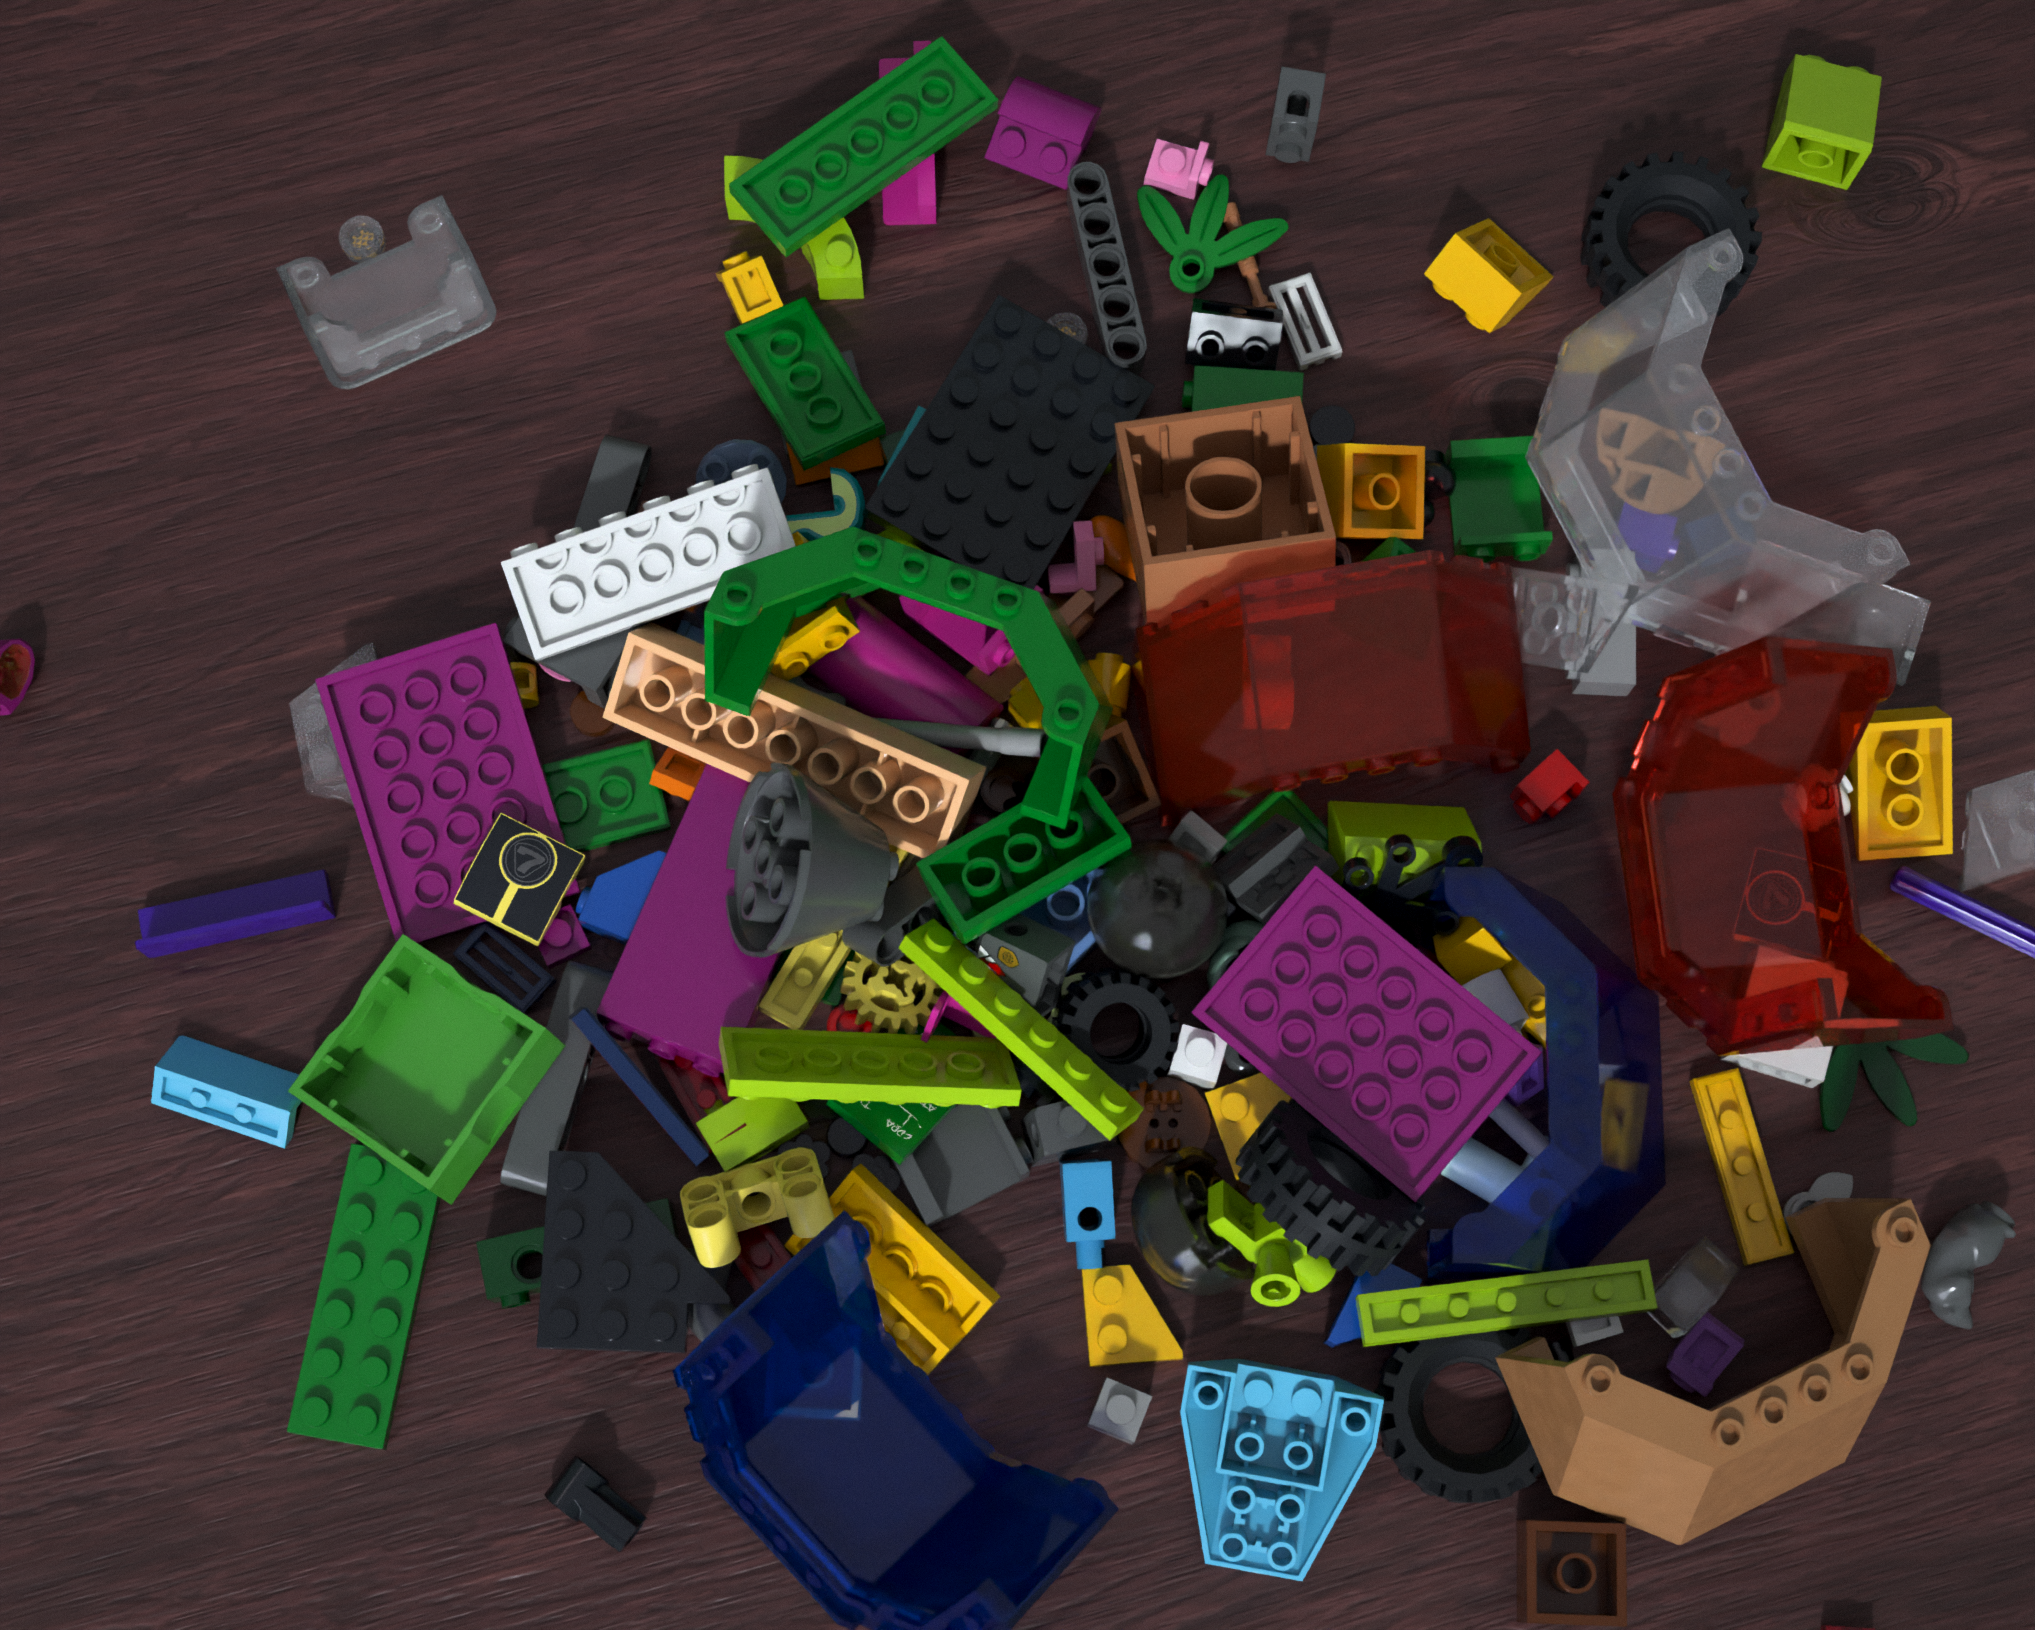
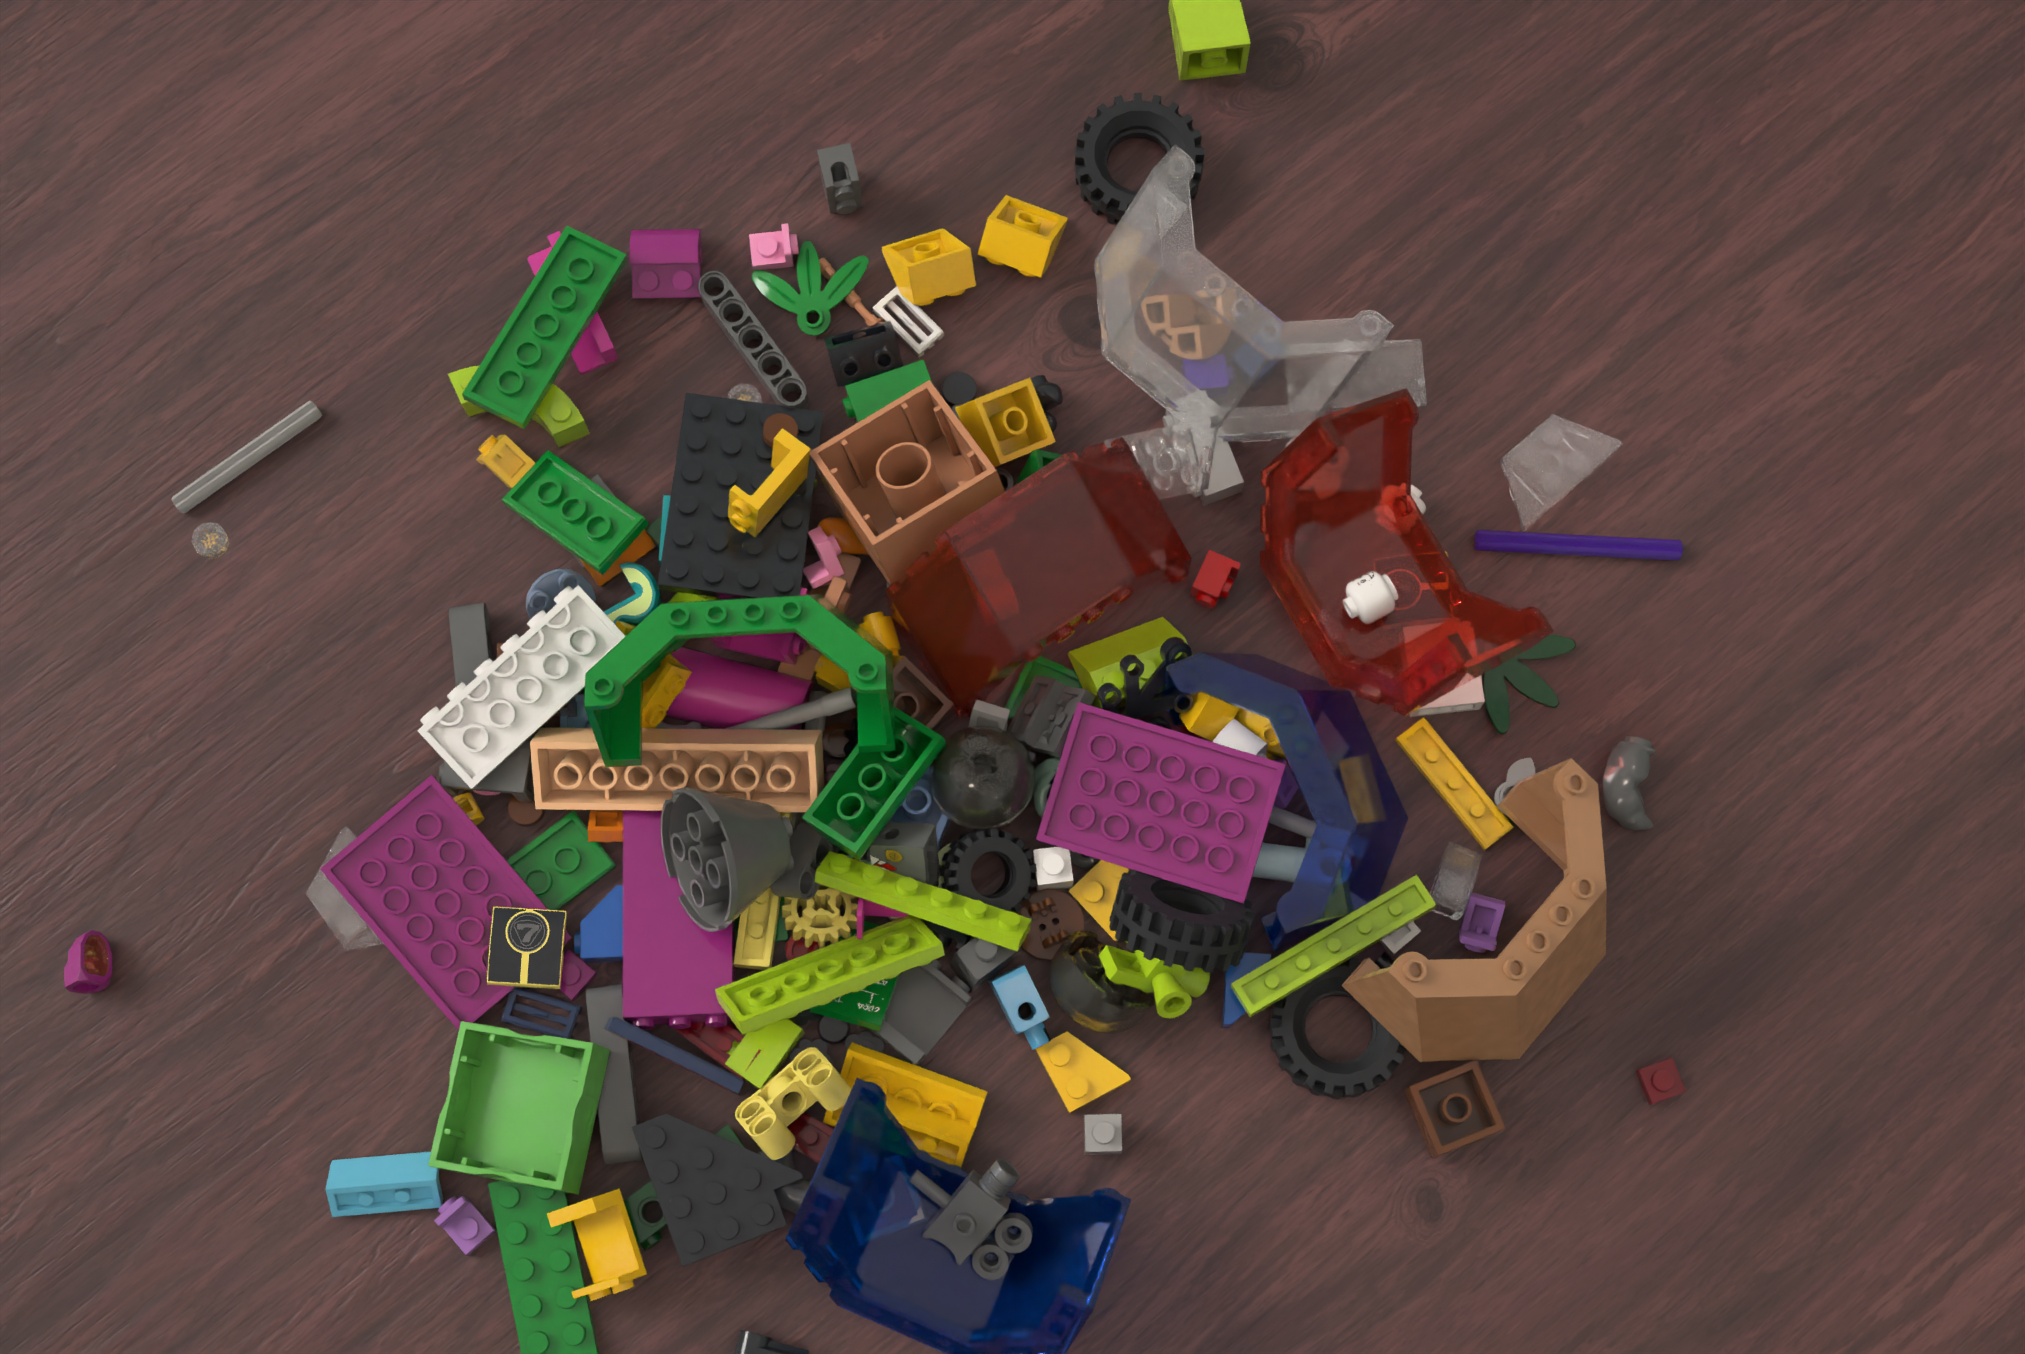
camera: 20 degrees left, 0 degrees up
(235, 914) = (333, 1058): dark purple panel -> none
(302, 1179) = (464, 1223): none -> medium lavender bracket
(392, 304) = (254, 576): clear windscreen -> none
(447, 158) = (246, 457): none -> light grey axle
(459, 1277) = (606, 1243): none -> yellow panel
(916, 1440) = (973, 1214): none -> dark grey piece
(1082, 438) = (790, 468): none -> yellow panel
(1092, 387) = (775, 423): none -> reddish brown tile
(1272, 1460) = (1221, 1121): medium azure wedge -> none
(1360, 266) = (930, 266): none -> yellow slope
(1495, 500) = (1094, 394): green panel -> none
(1735, 891) = (1370, 597): none -> white head
(1903, 785) = (1454, 474): yellow slope -> none

